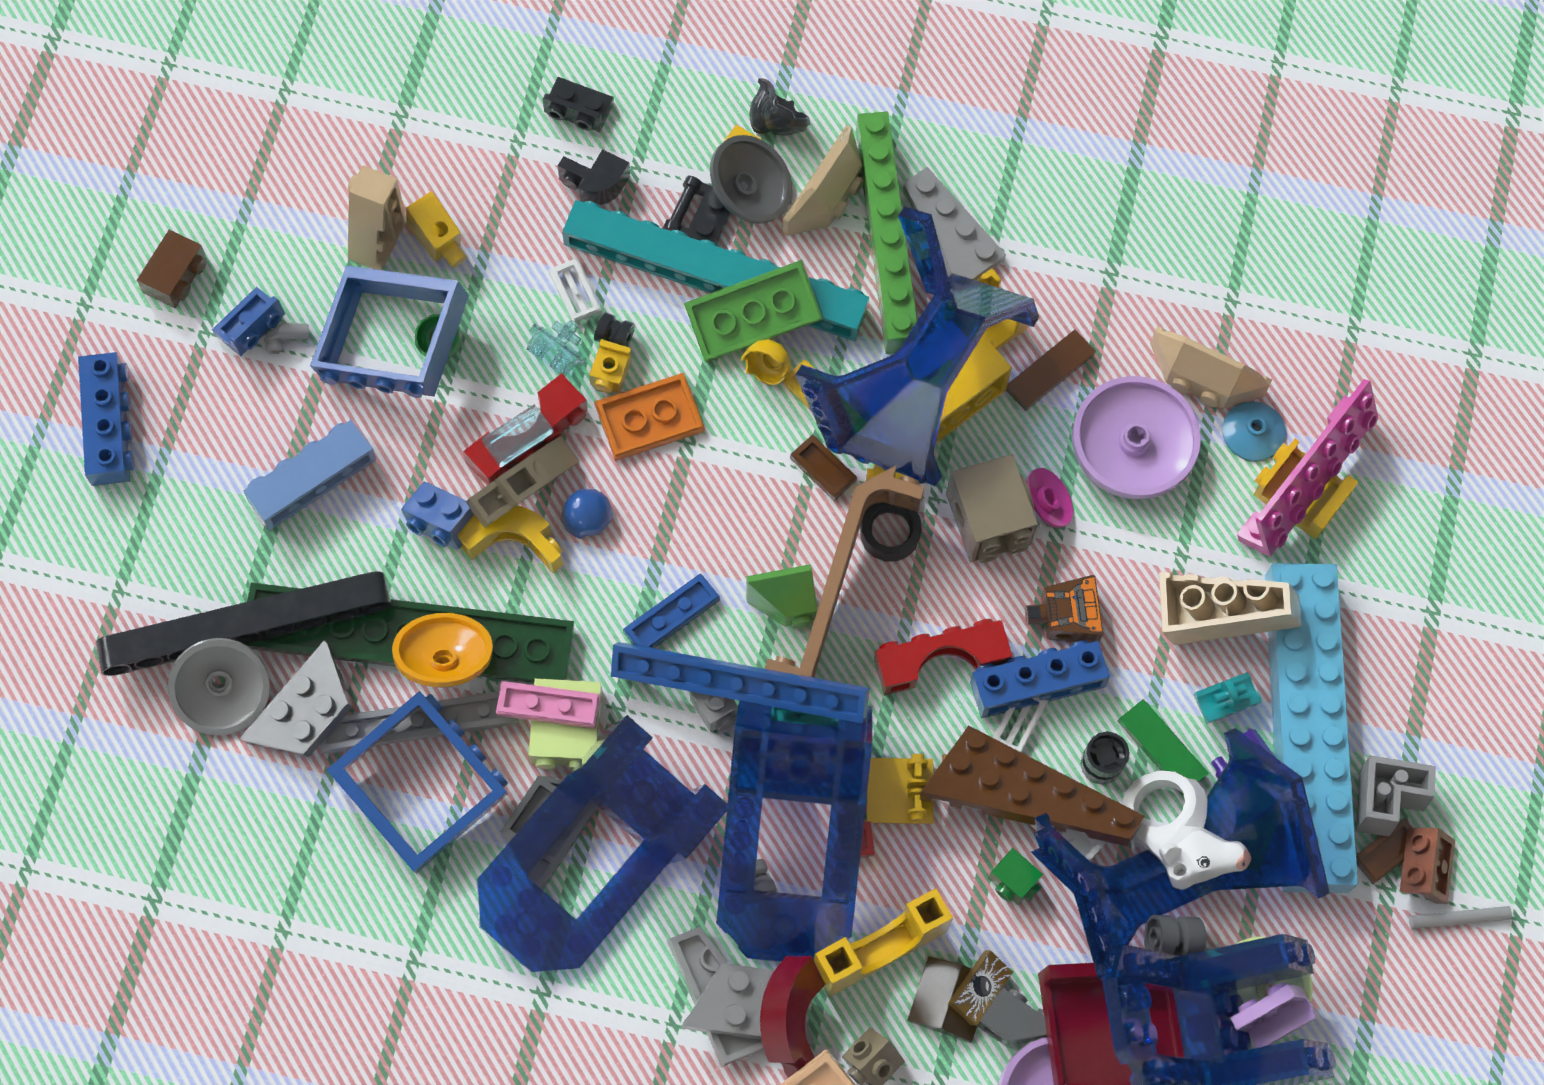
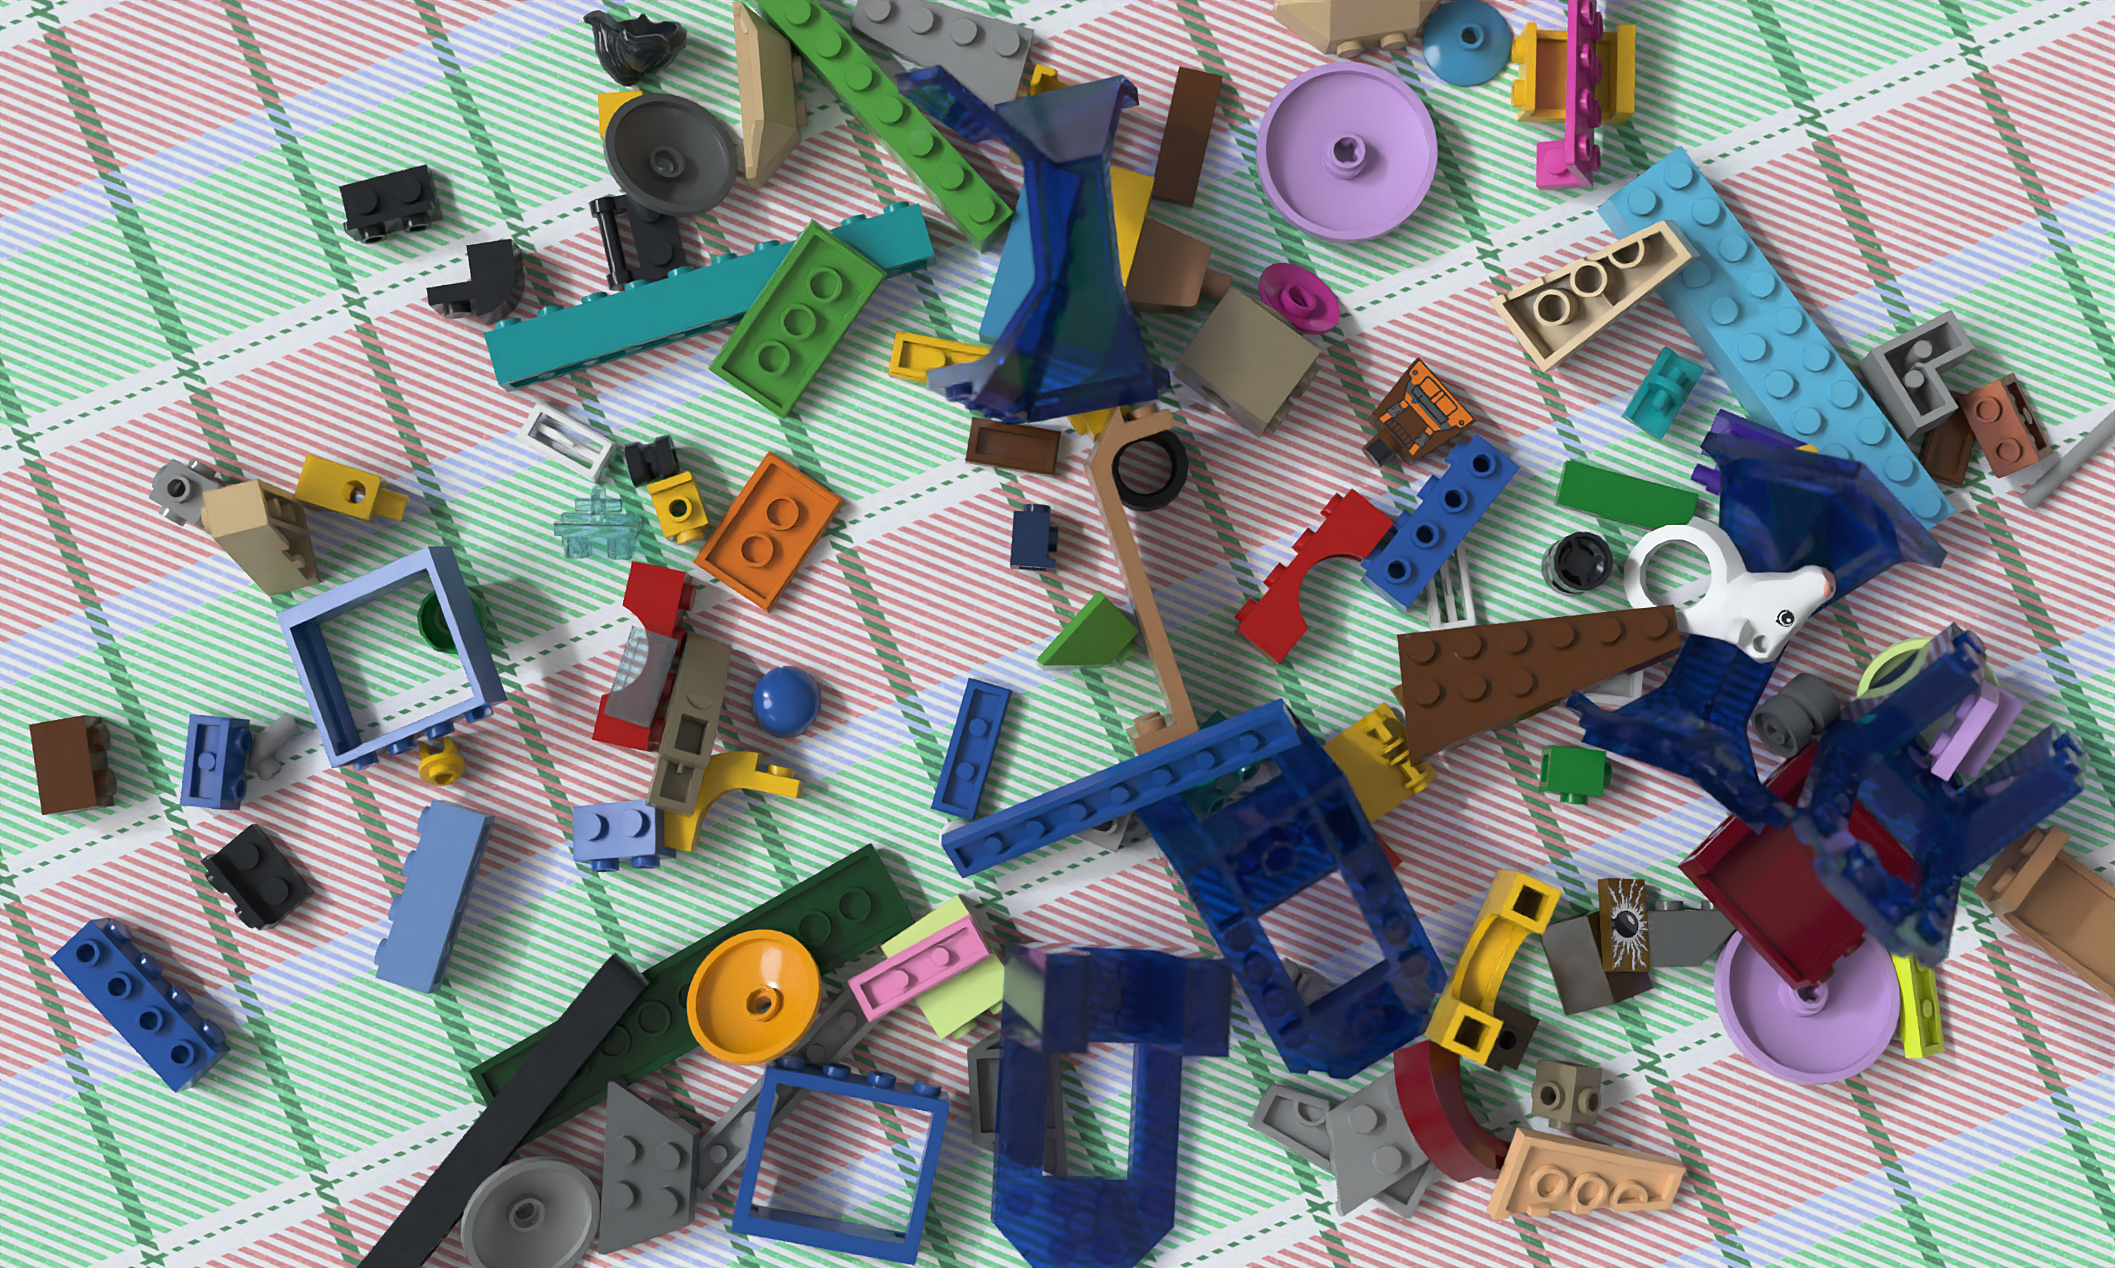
camera: 35 degrees left, 15 degrees up
(220, 399) = (256, 879): none -> black bracket
(343, 167) = (180, 490): none -> light grey brick
(368, 410) = (442, 767): none -> yellow plate
(767, 361) = (858, 368): yellow hair -> none
(795, 523) = (1033, 539): none -> dark blue brick
(859, 999) = (1512, 1037): none -> dark brown brick
(983, 432) = (1172, 272): none -> medium nougat torso

